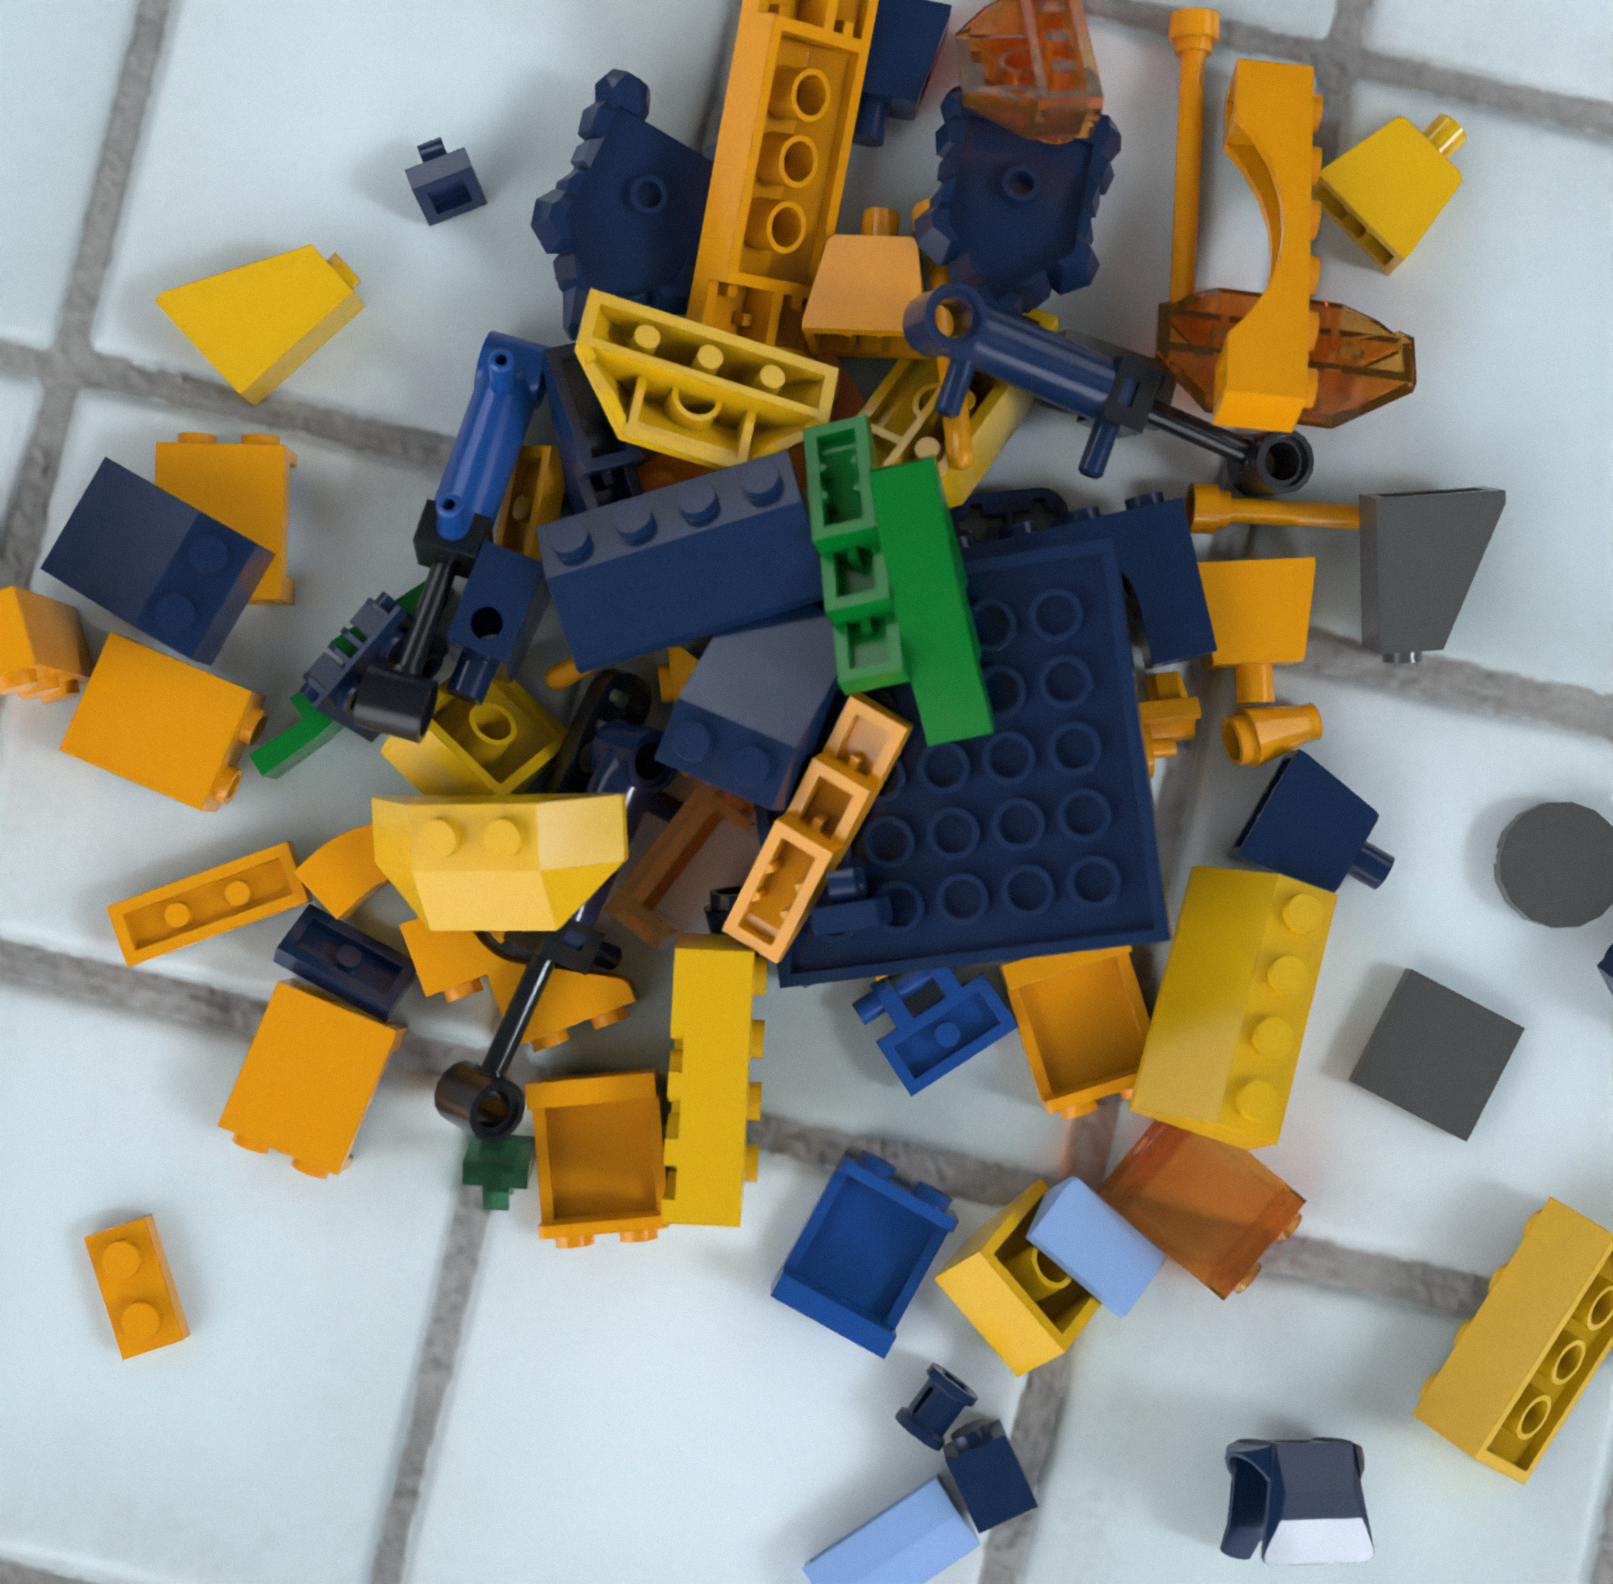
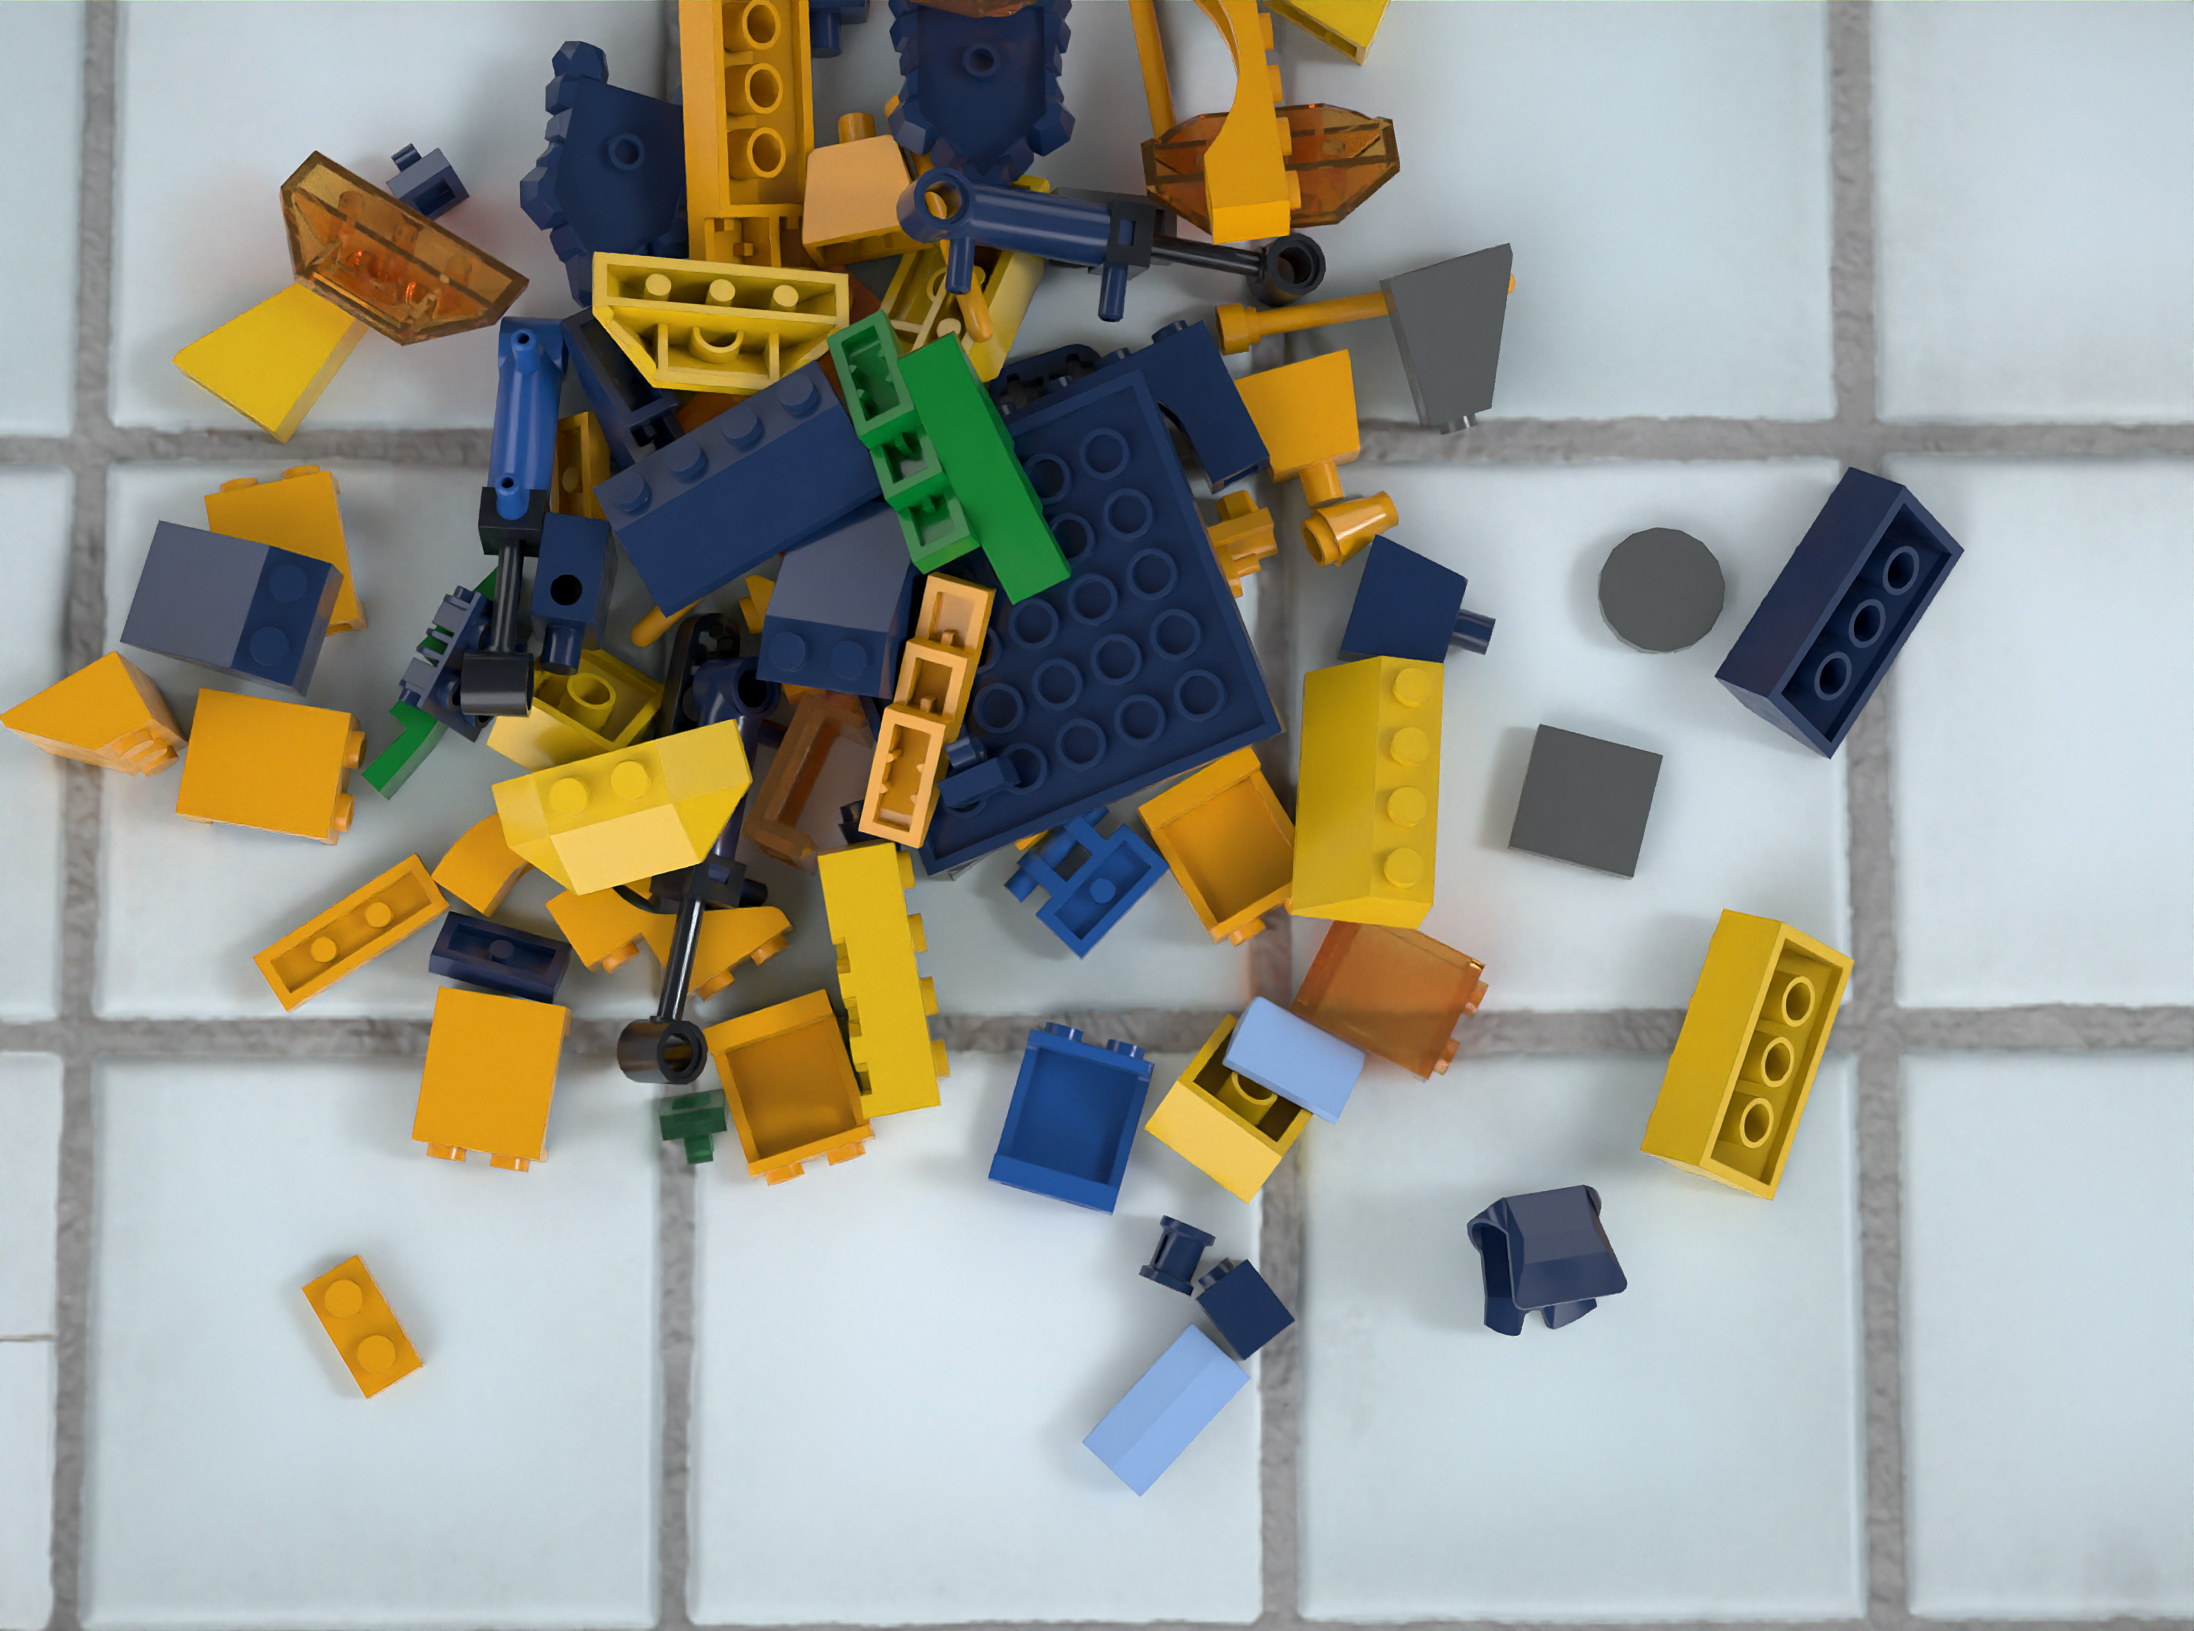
camera: 15 degrees left, 5 degrees down
(387, 247) = (388, 258): none -> clear orange wedge

